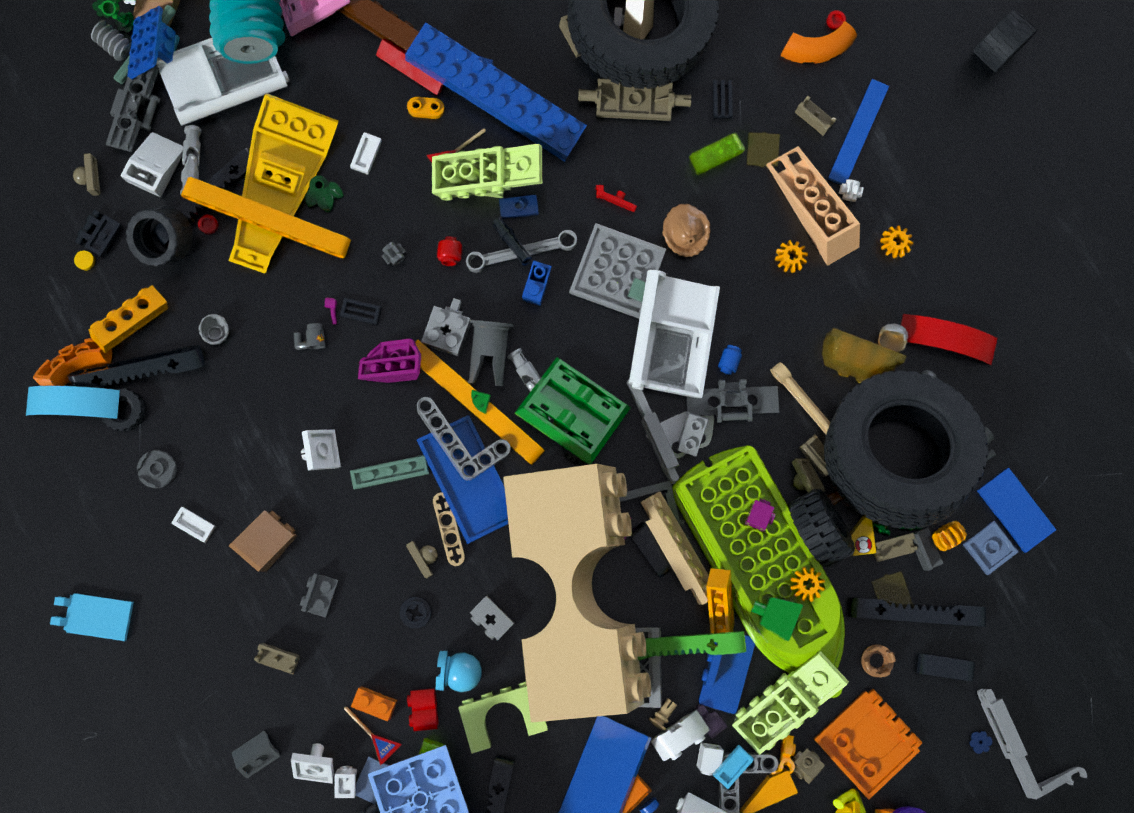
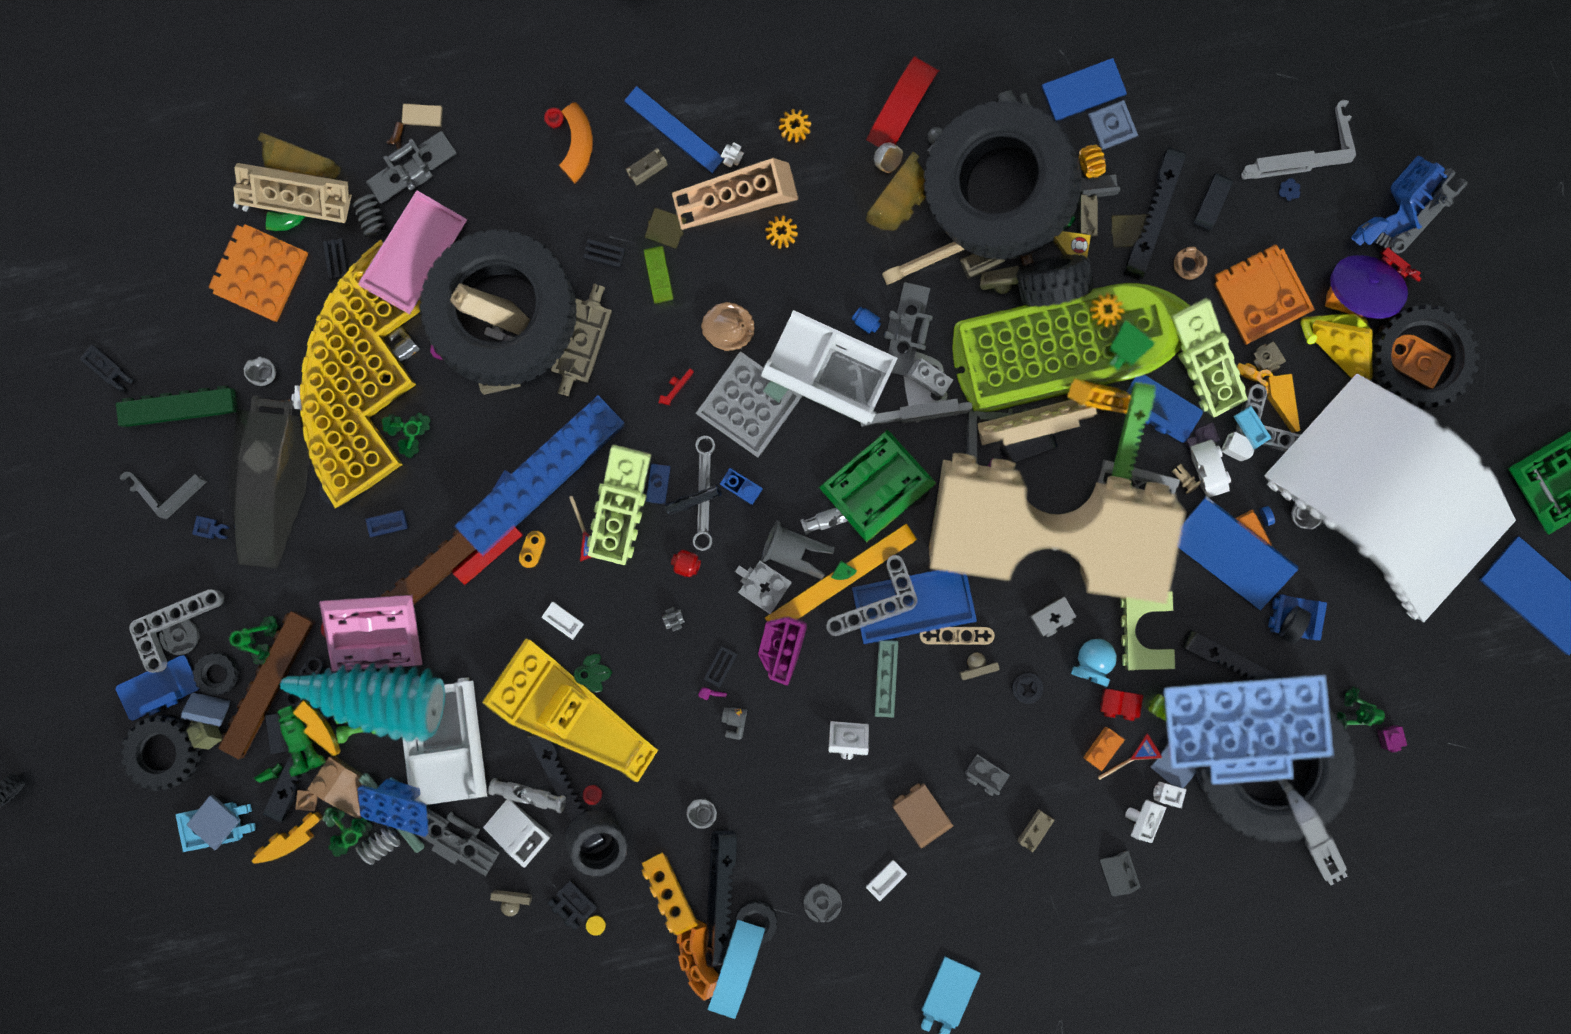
camera: 70 degrees left, 5 degrees up
(265, 217) = (606, 734): light orange beam -> none
(760, 515) = (1029, 335): magenta brick -> none

